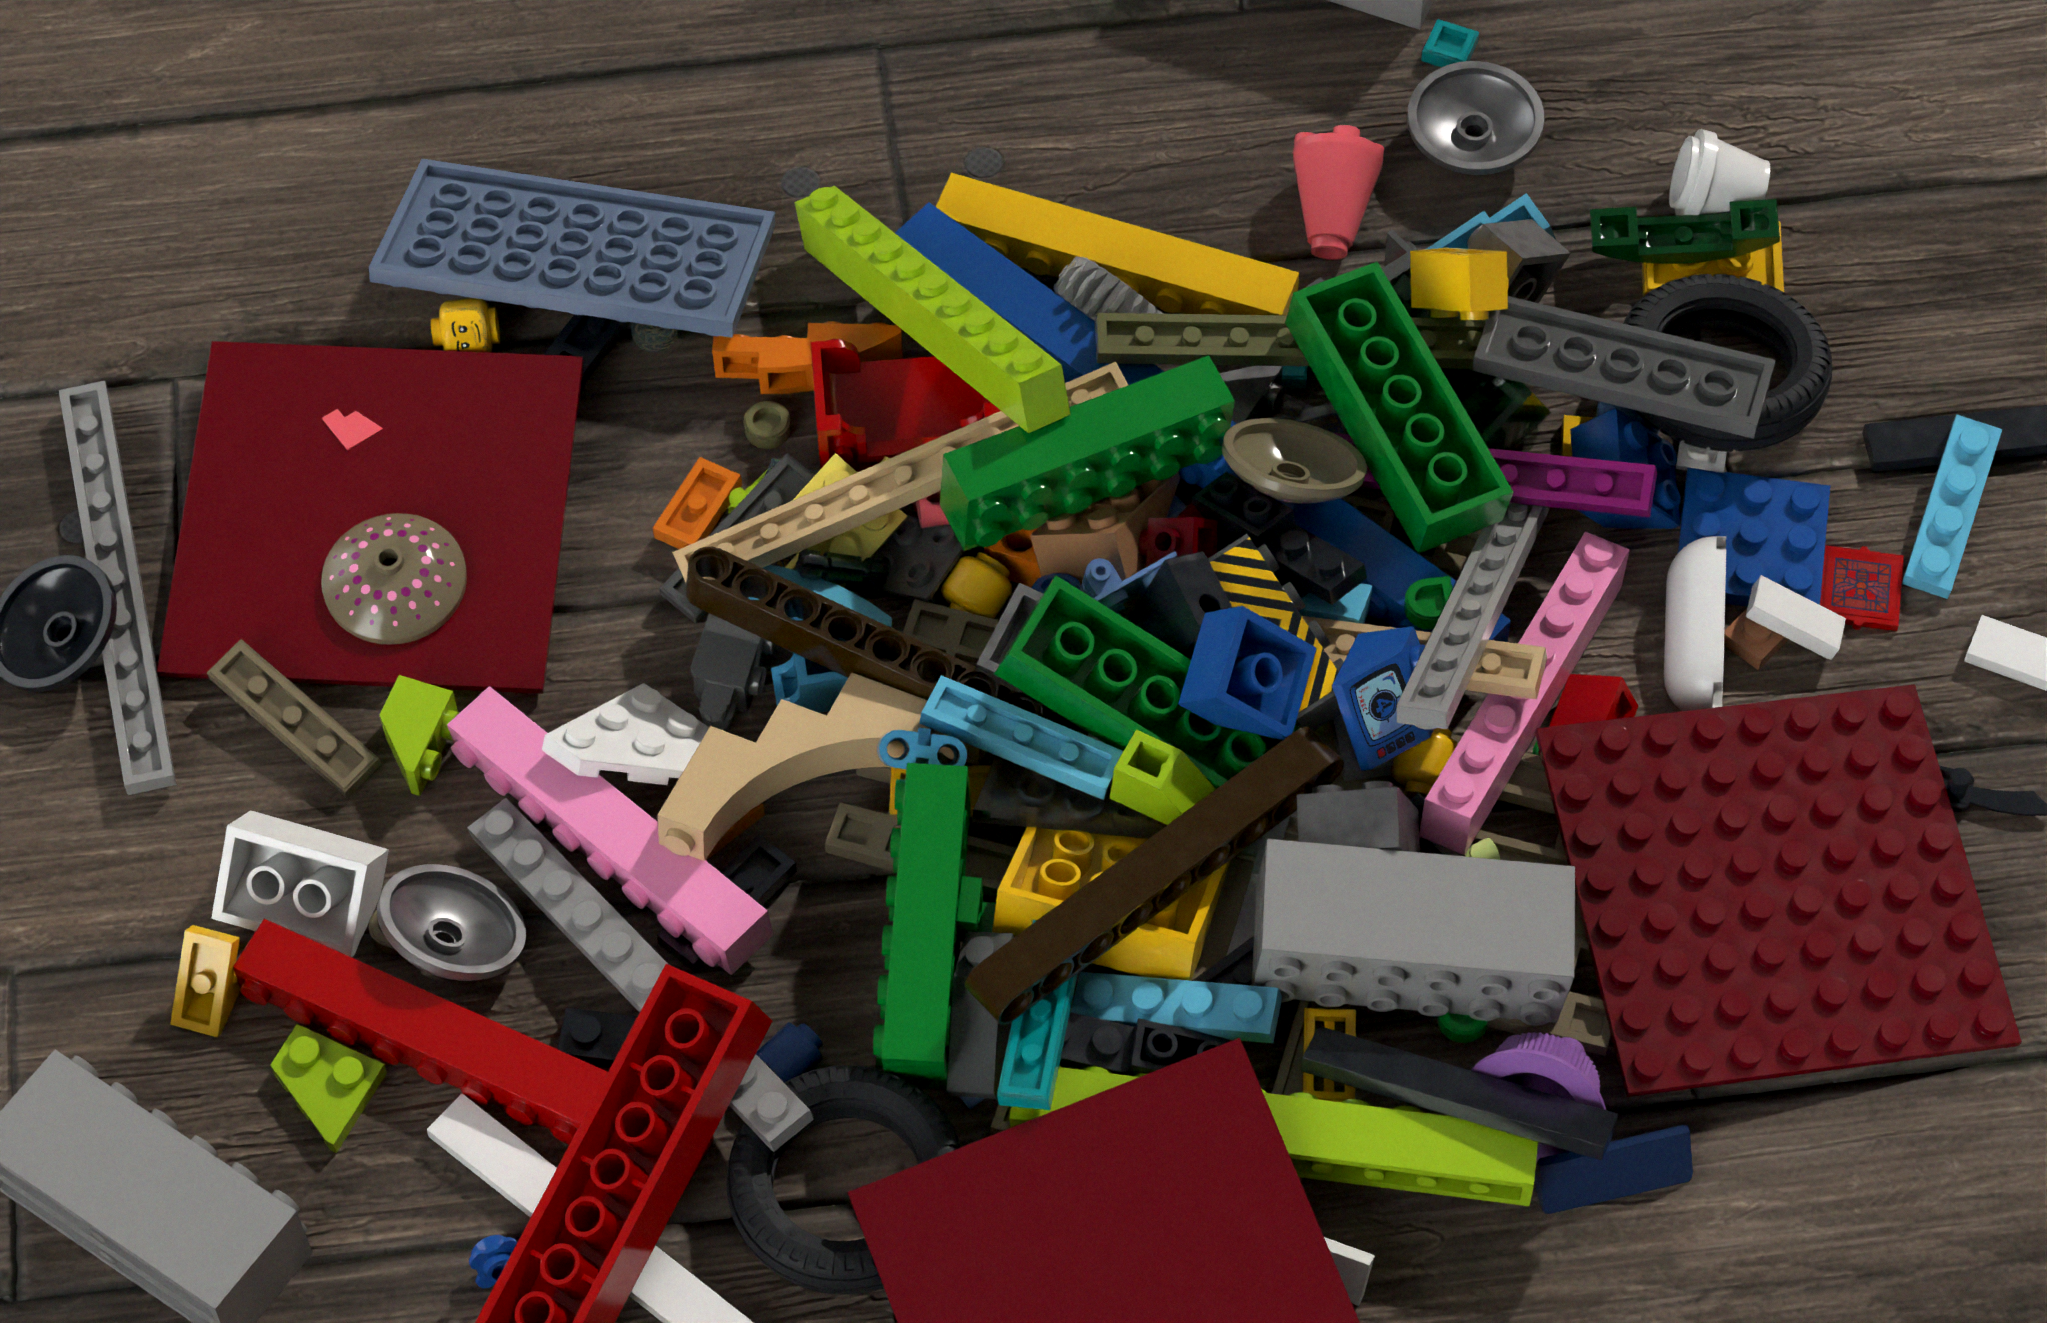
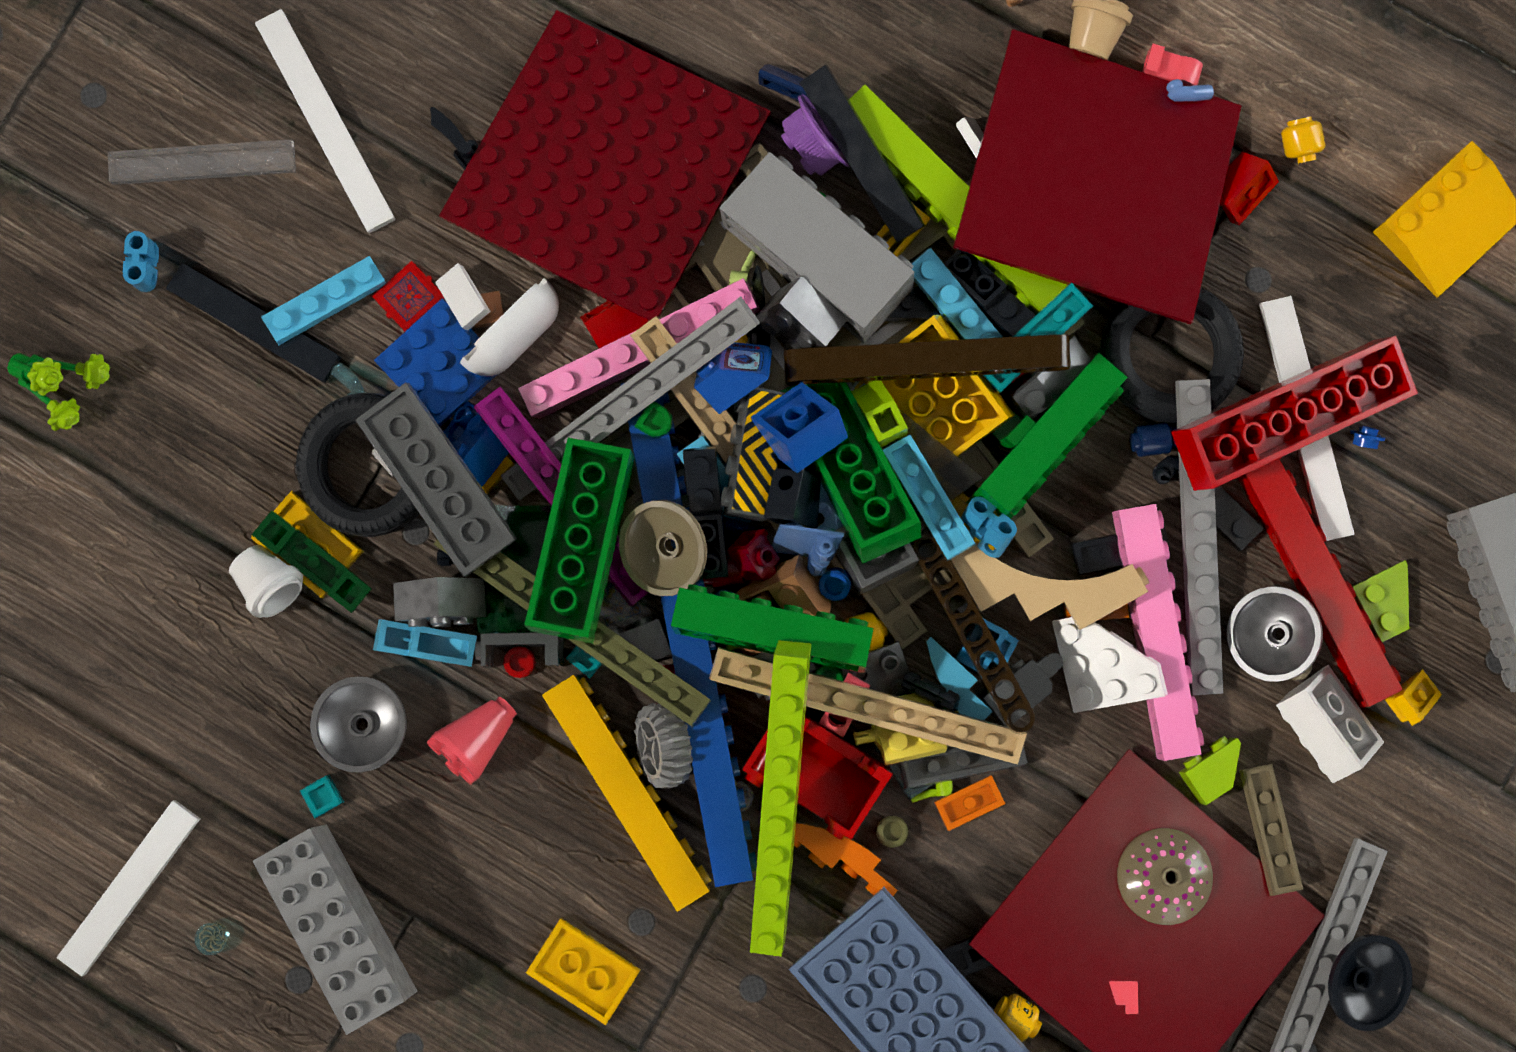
camera: 145 degrees left, 25 degrees up
(1007, 75) = (583, 971): none -> yellow tile
(1459, 282) = (481, 592): yellow brick -> none
(1817, 442) = (347, 378): none -> clear light blue arm

